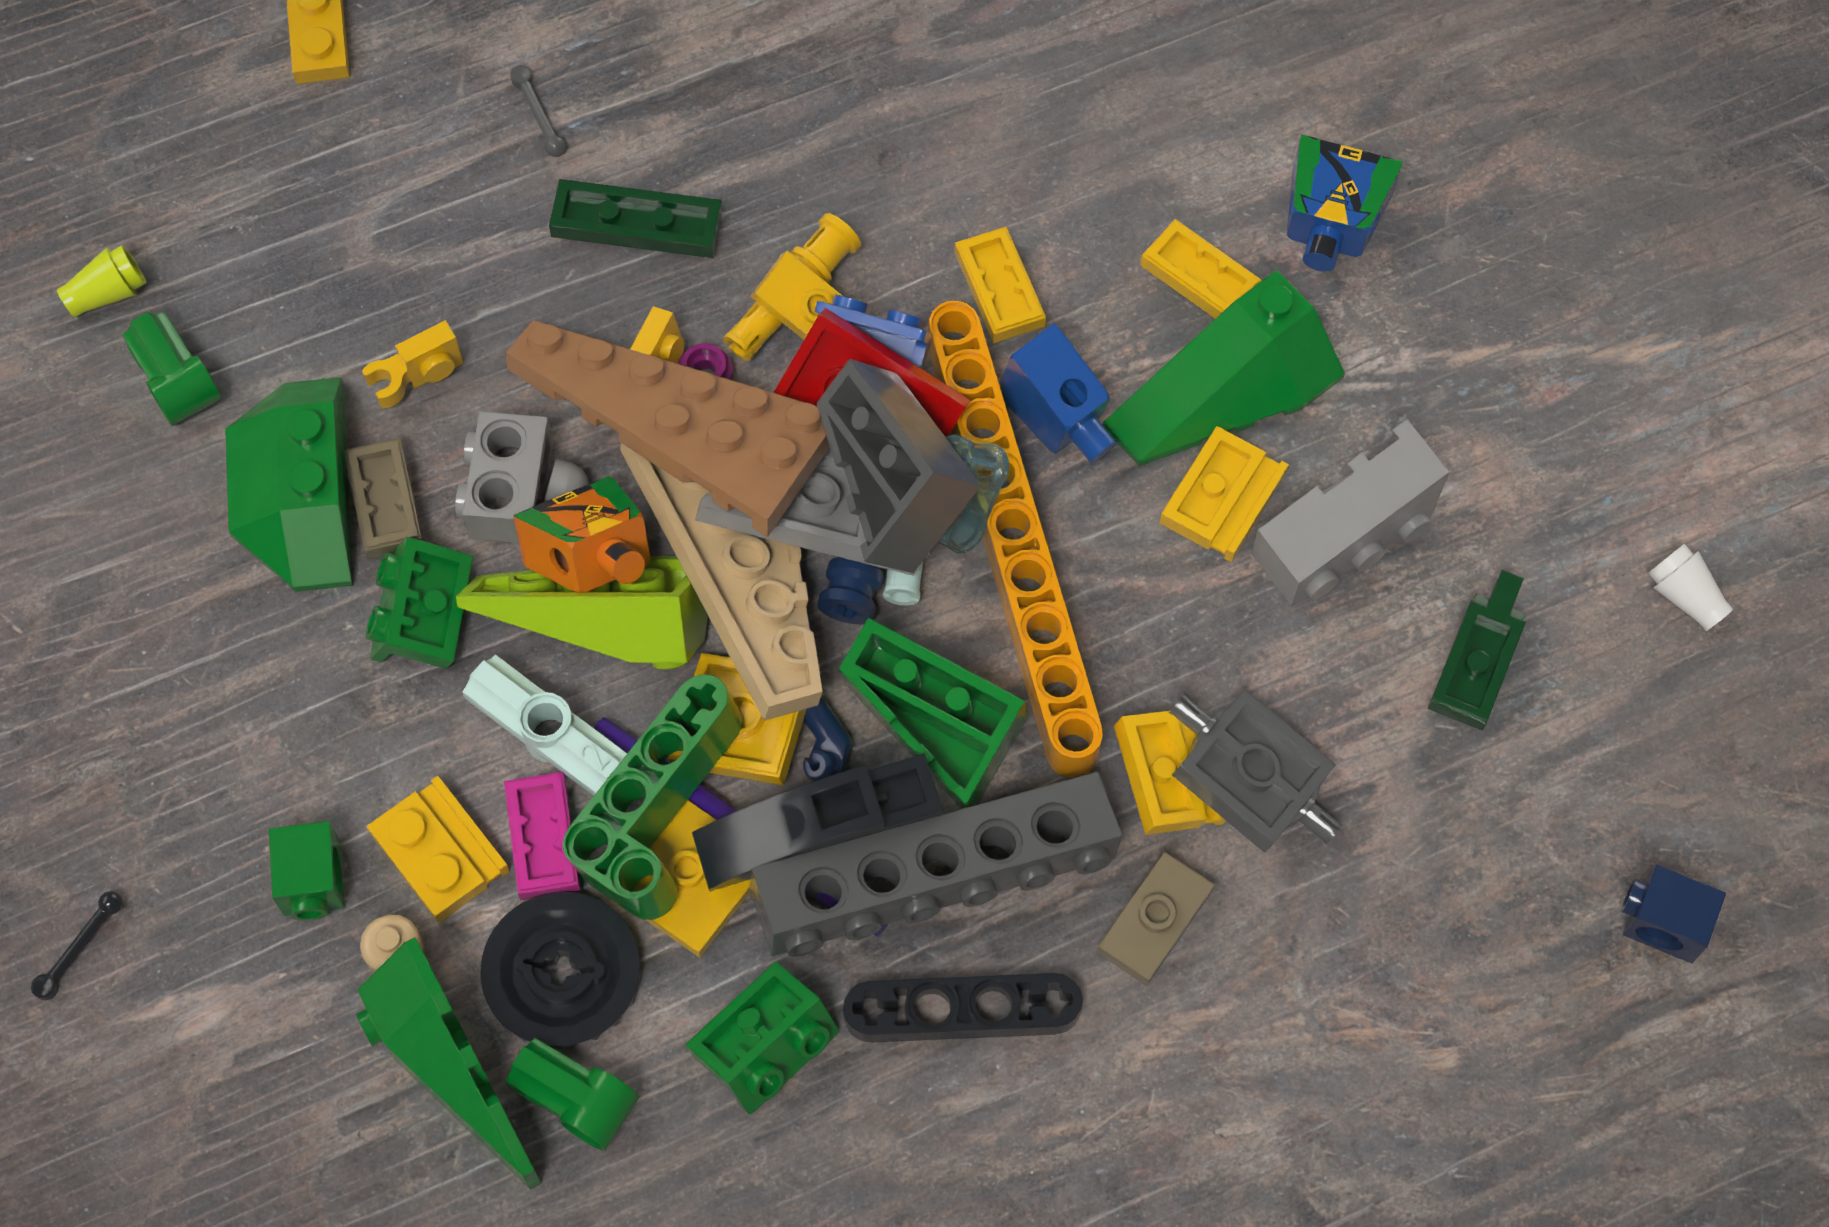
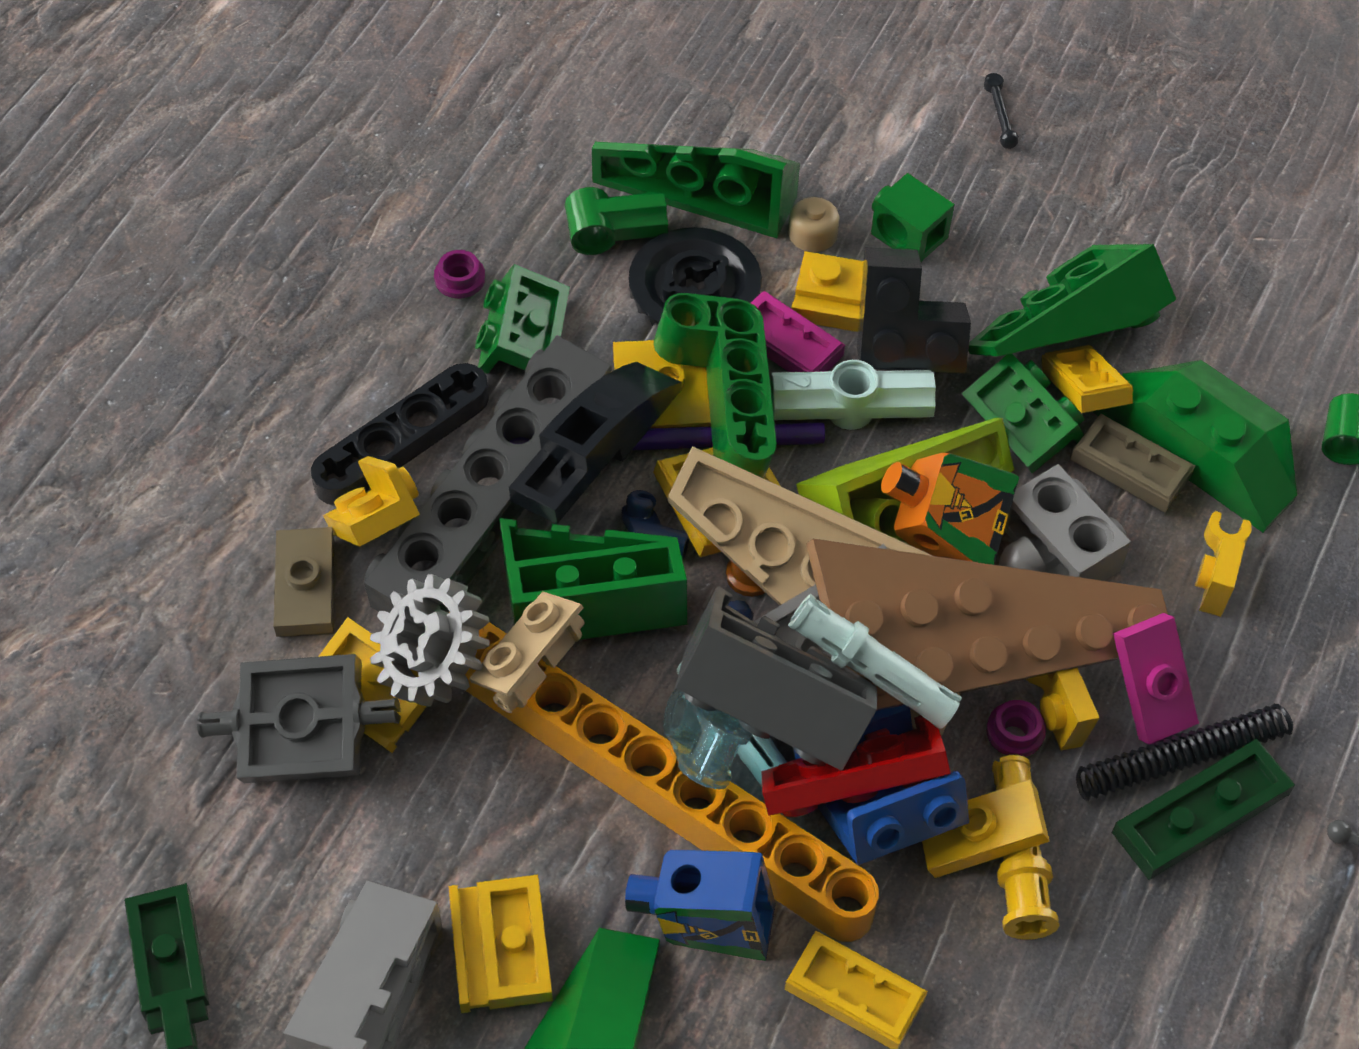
camera: 140 degrees right, 10 degrees down
(266, 661) = (1086, 296): none -> green wedge
(342, 586) = (1087, 379): none -> yellow plate
(438, 740) = (899, 328): none -> black brick
(523, 236) = (1101, 777): none -> black piece
(576, 308) = (1156, 678): none -> dark pink plate
(767, 1131) = (459, 274): none -> magenta plate
(814, 424) = (864, 654): none -> light aqua pin
(1044, 647) = (542, 632): none -> tan hinge
(1064, 909) = (367, 515): none -> yellow bracket
(1116, 719) = (429, 640): none -> light grey gear

